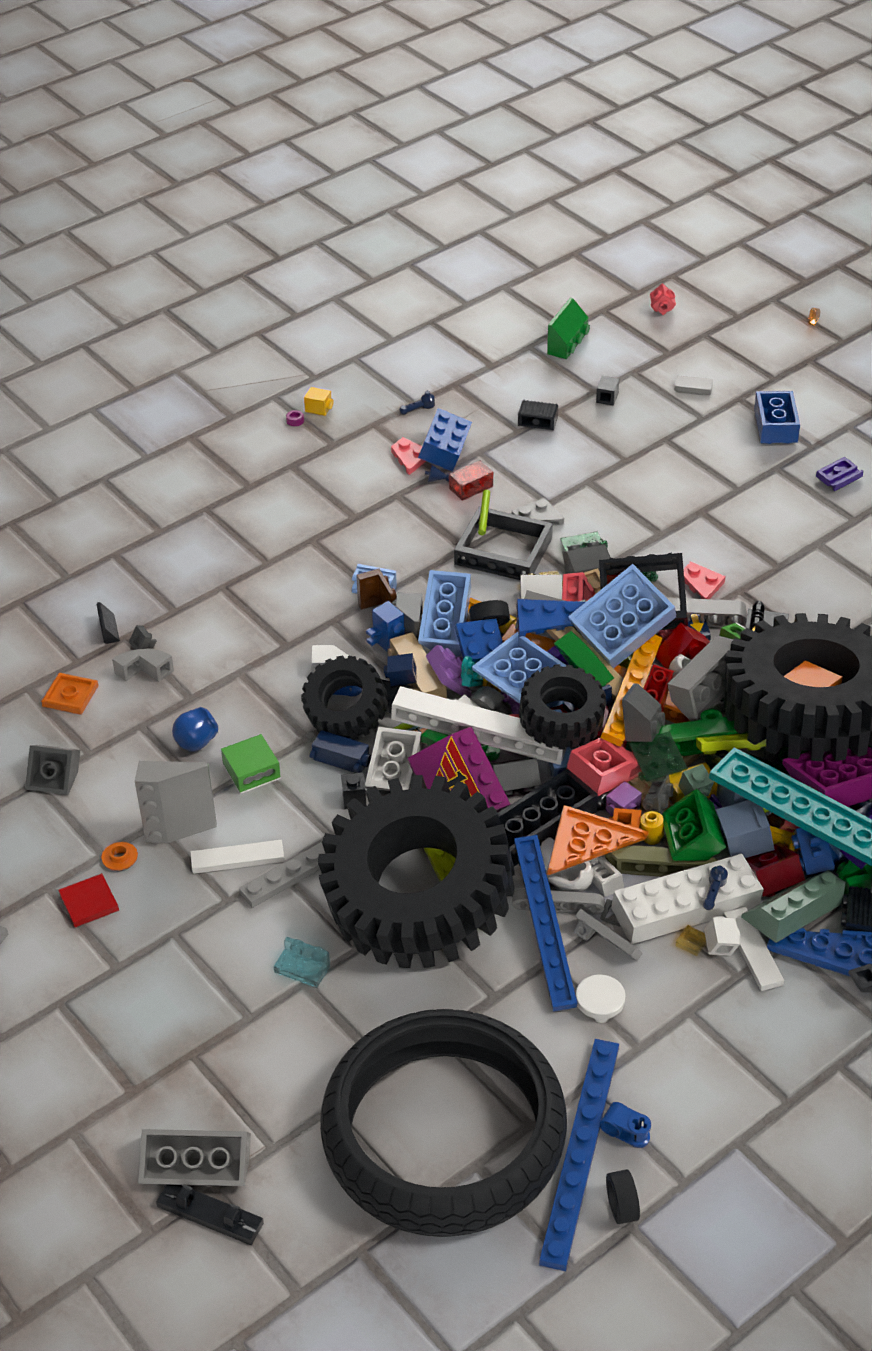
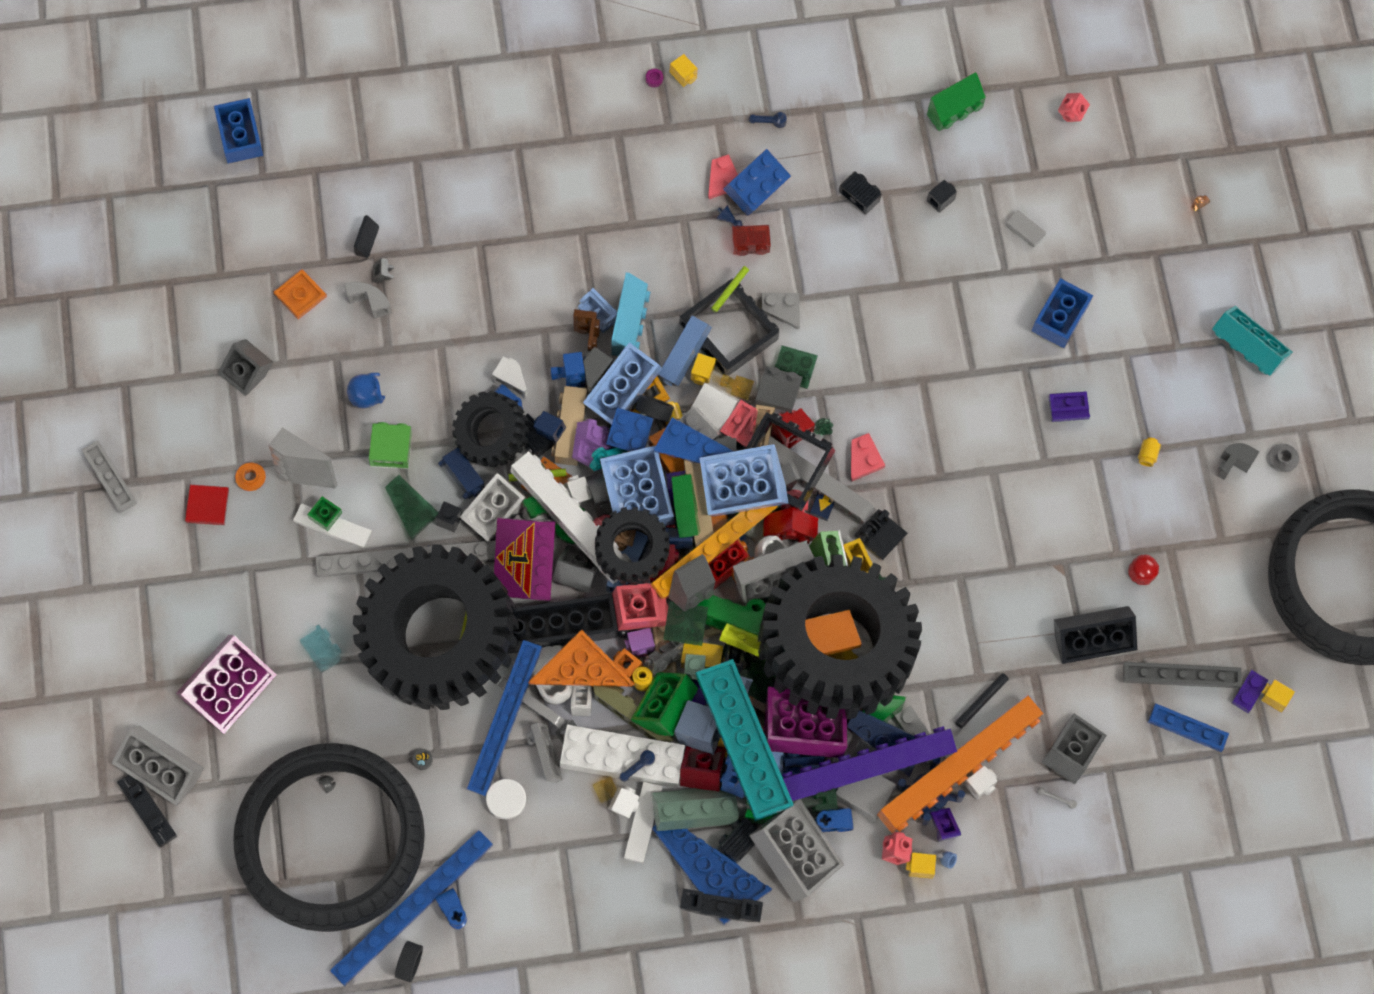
camera: 25 degrees right, 25 degrees up
(219, 1043) = (226, 683): none -> slope
(223, 844) = (324, 513): none -> green piece
(306, 802) = (410, 506): none -> clear green wing
(399, 1079) = (326, 781): none -> dark grey hinge
(403, 560) = (630, 314): none -> medium azure slope
(480, 565) = (684, 351): none -> medium blue brick
(485, 1005) = (422, 759): none -> dark grey tile
(505, 580) = (703, 369): none -> yellow brick

